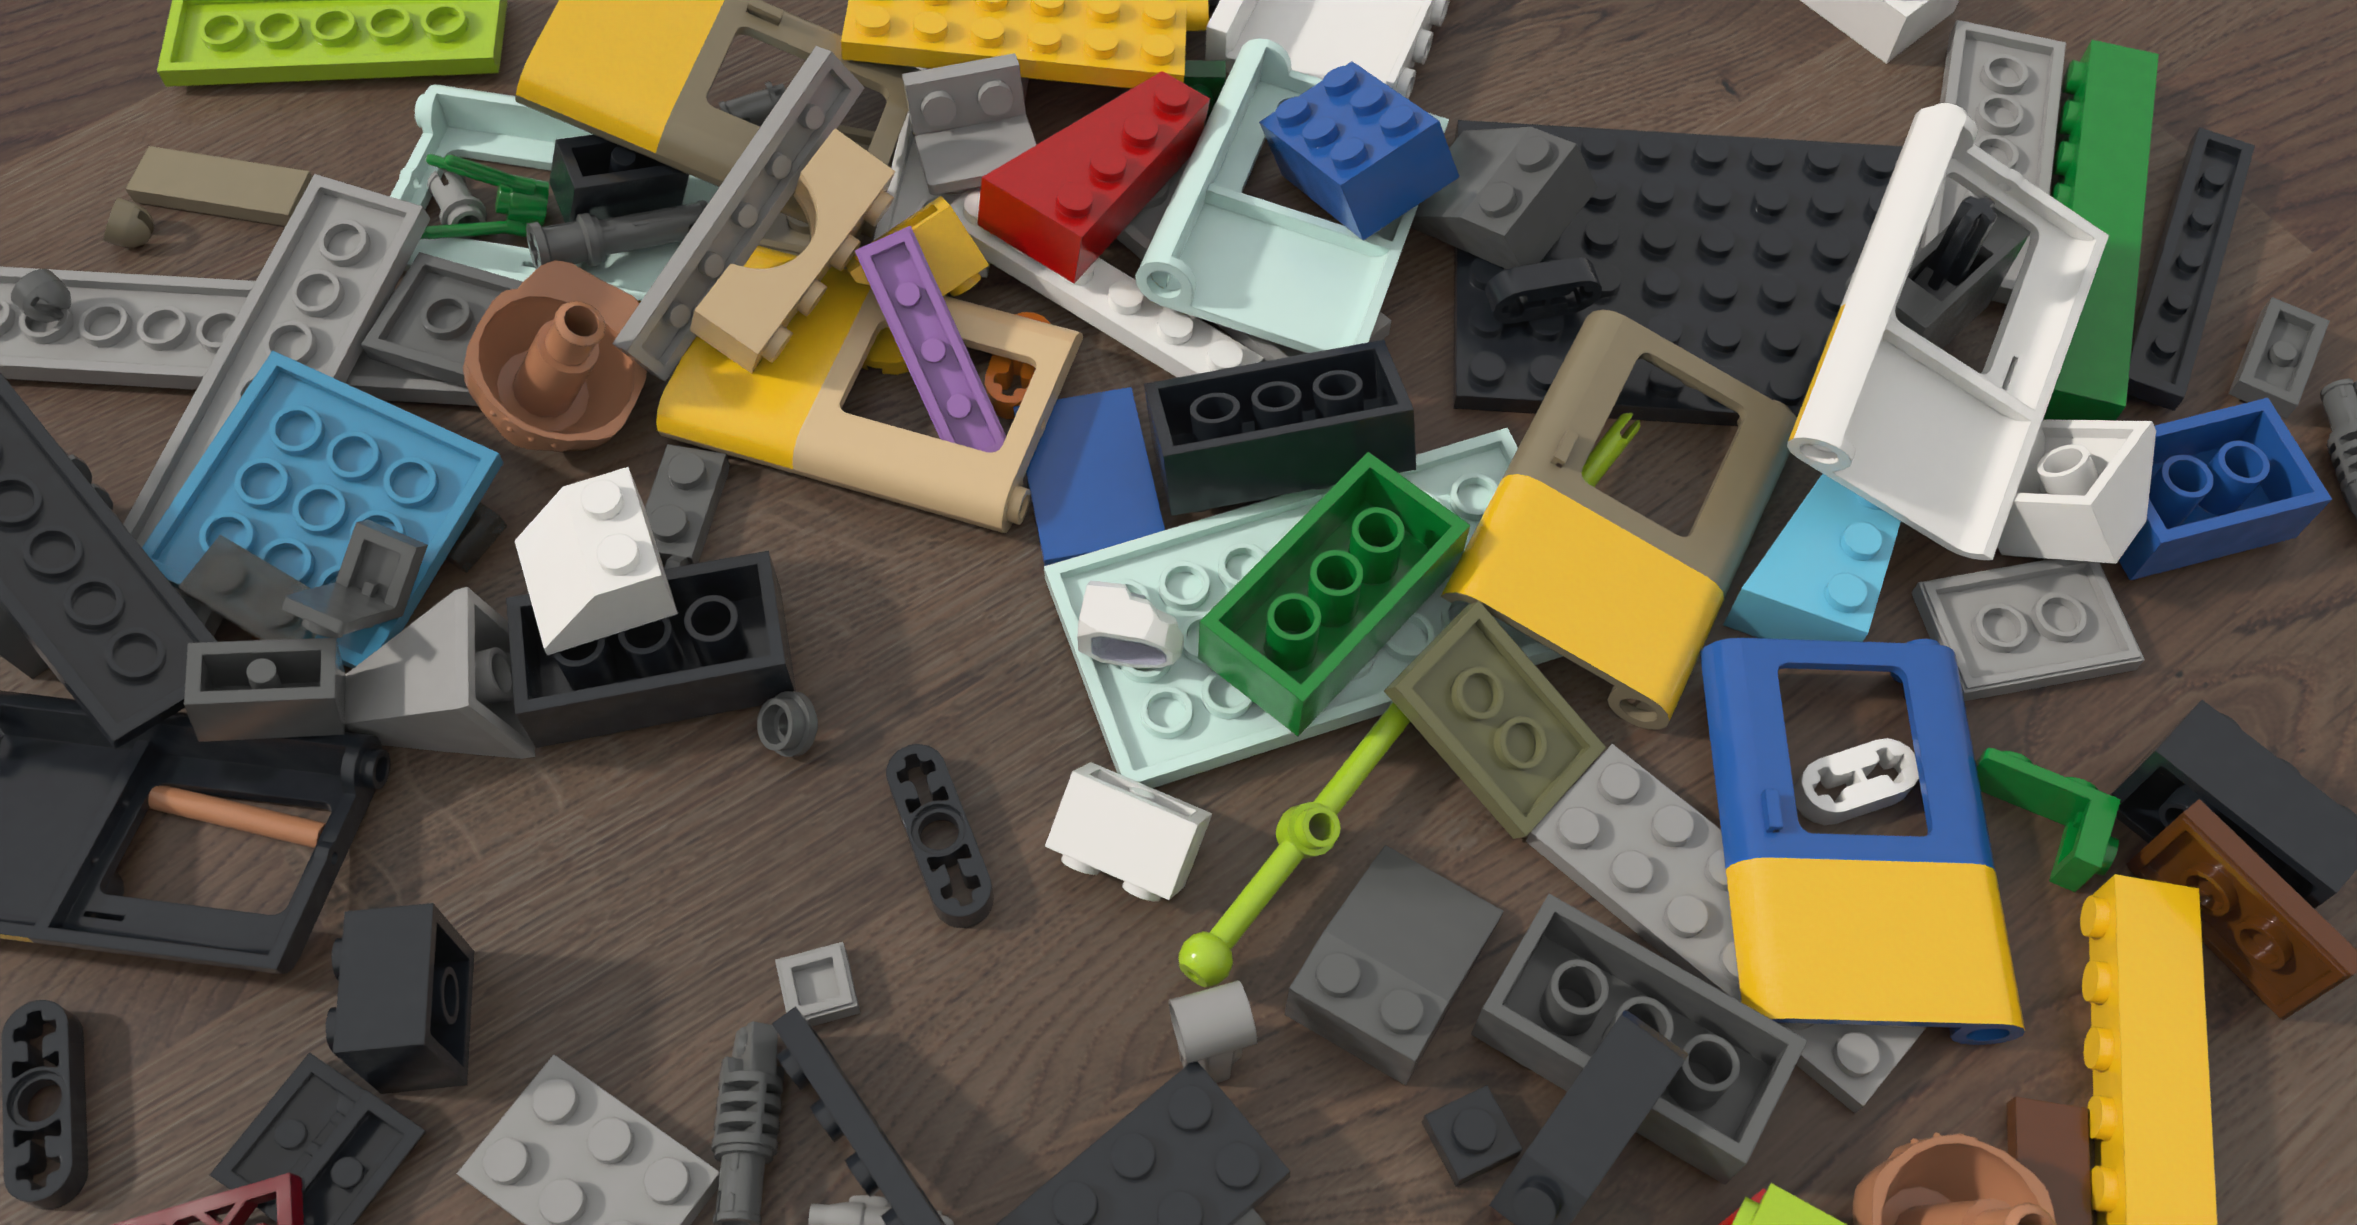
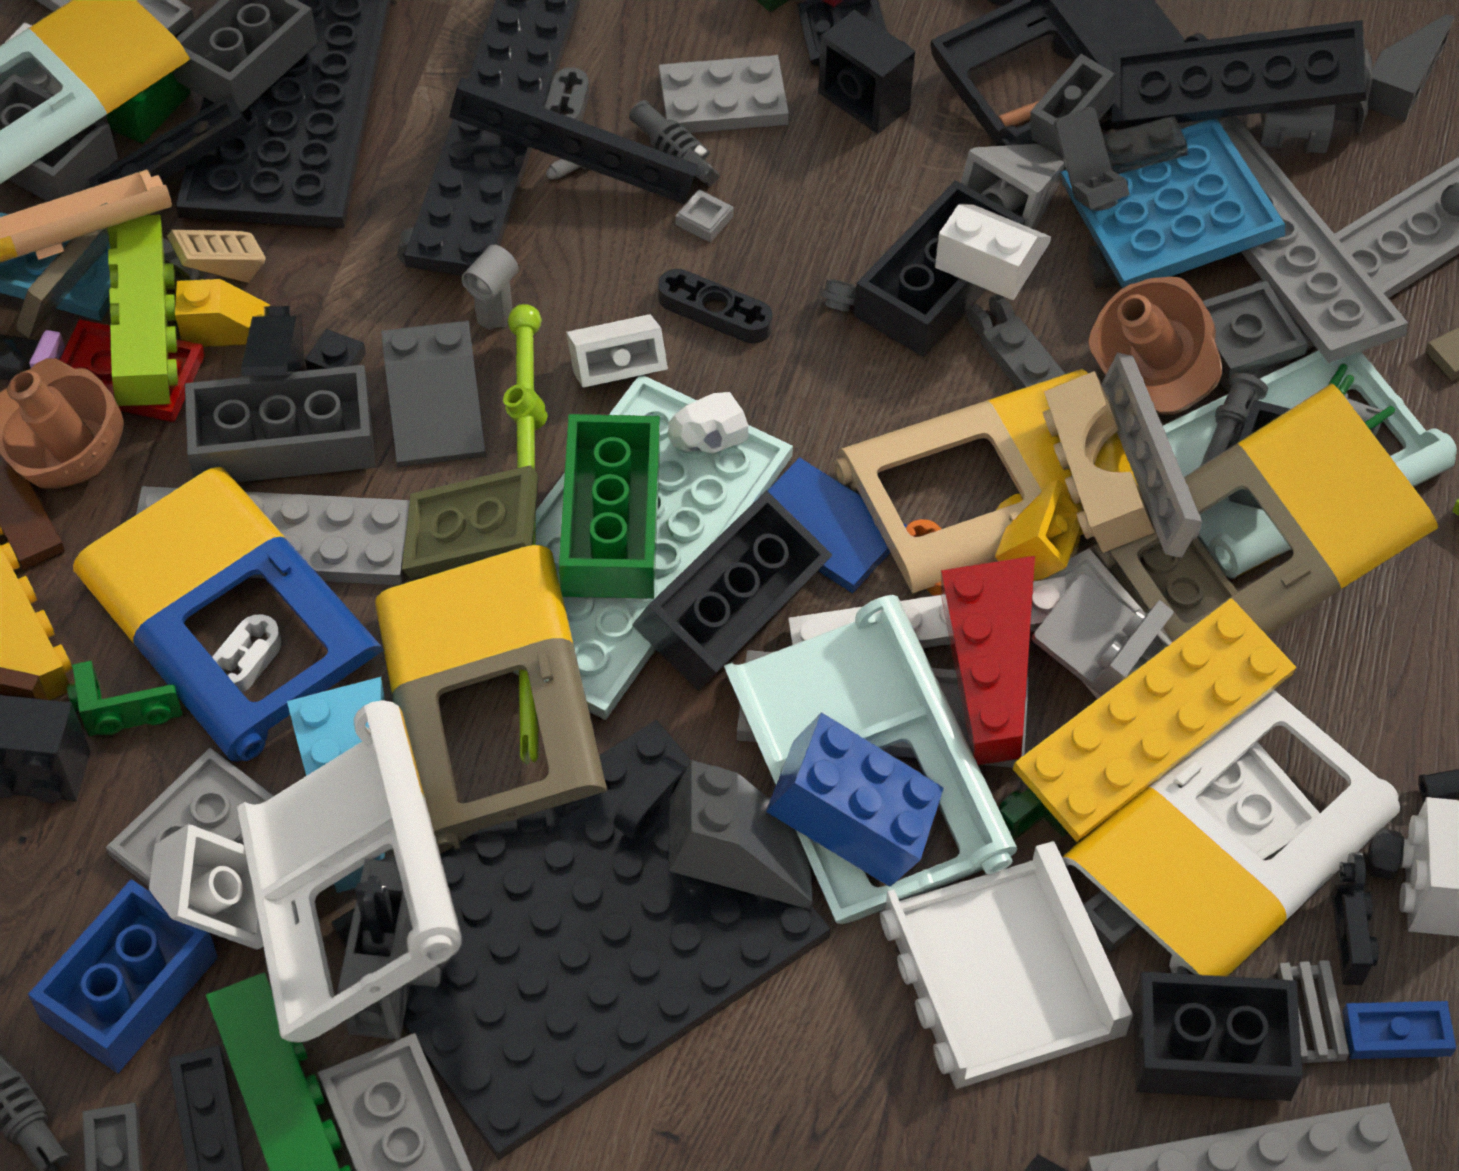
camera: 140 degrees right, 5 degrees down
(930, 342) = (974, 491): medium lavender tile -> none

